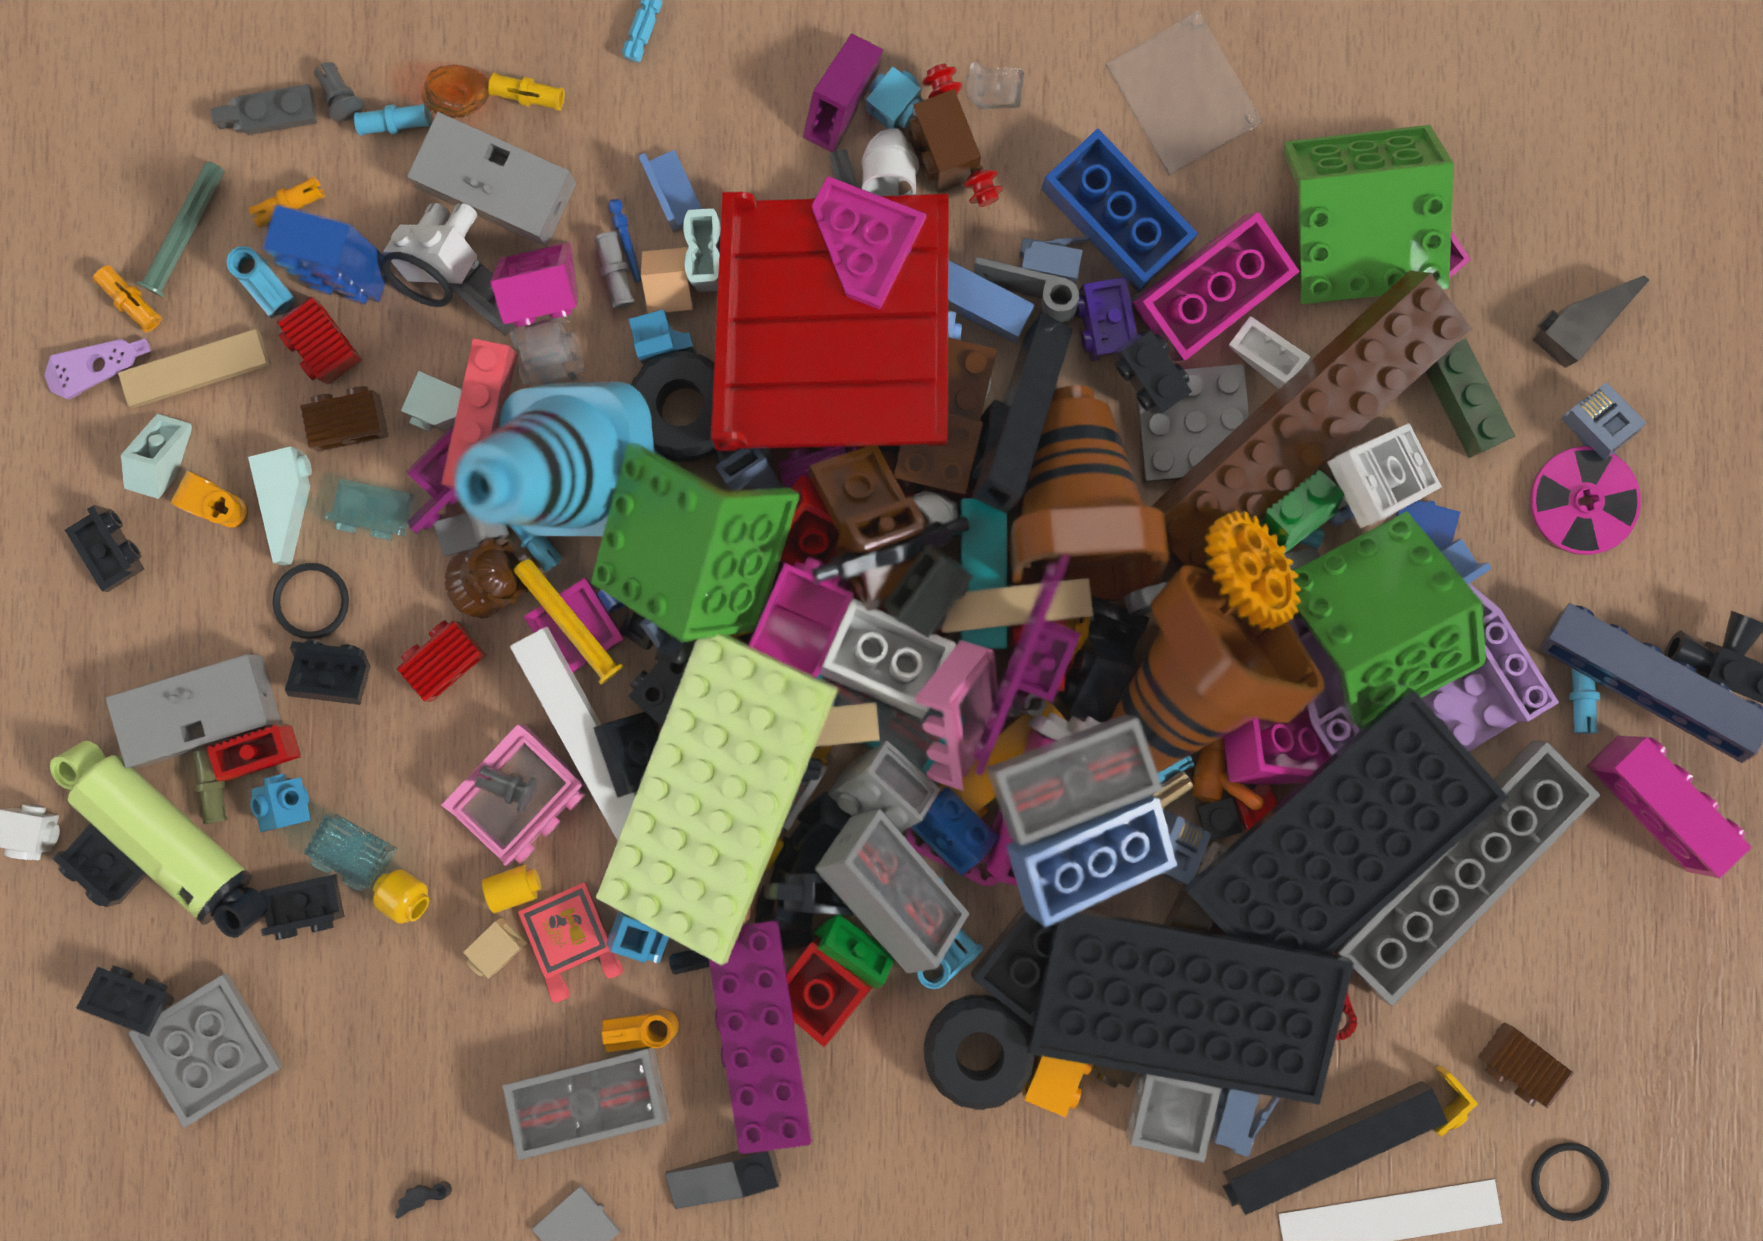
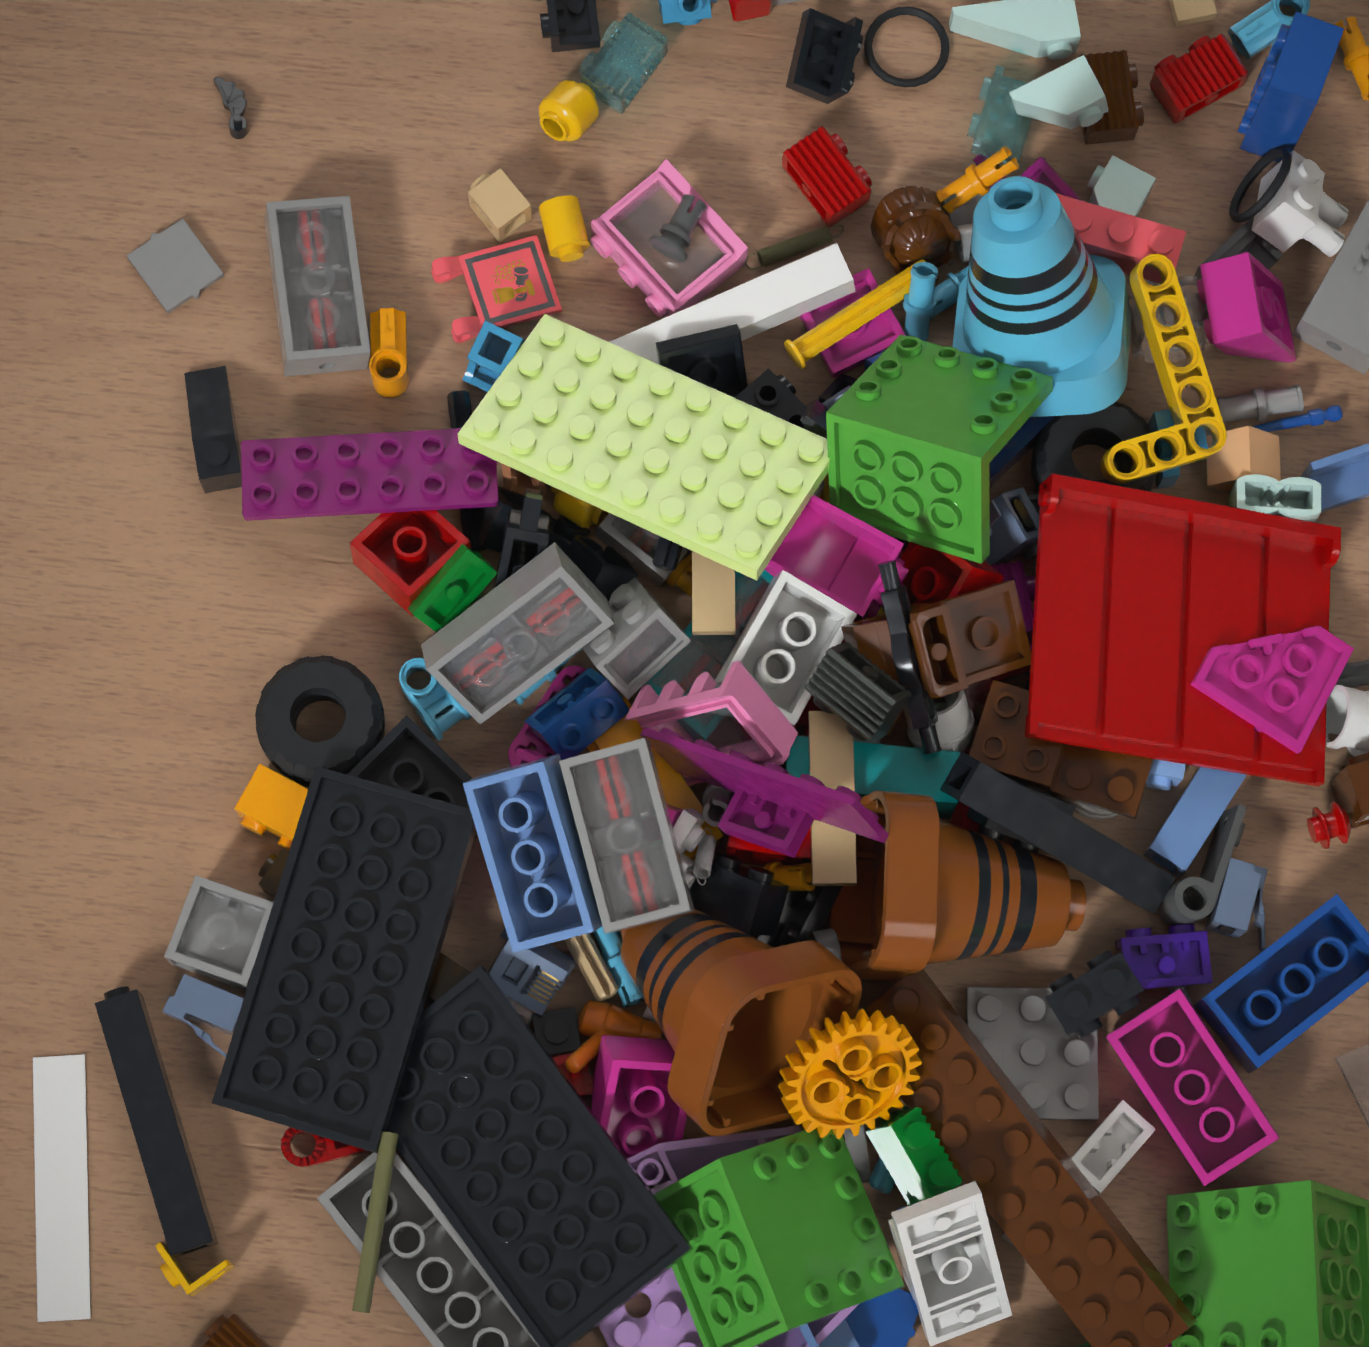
camera: 90 degrees right, 10 degrees down
(351, 456) = (1063, 96): none -> light aqua slope
(435, 526) = (977, 179): none -> light orange pin
(507, 683) = (794, 246): none -> olive piece
(553, 568) = (920, 300): none -> medium azure pin
(614, 339) = (1172, 379): none -> yellow beam
(1072, 710) = (704, 857): none -> white piece
(1409, 955) = (375, 1222): none -> olive bar

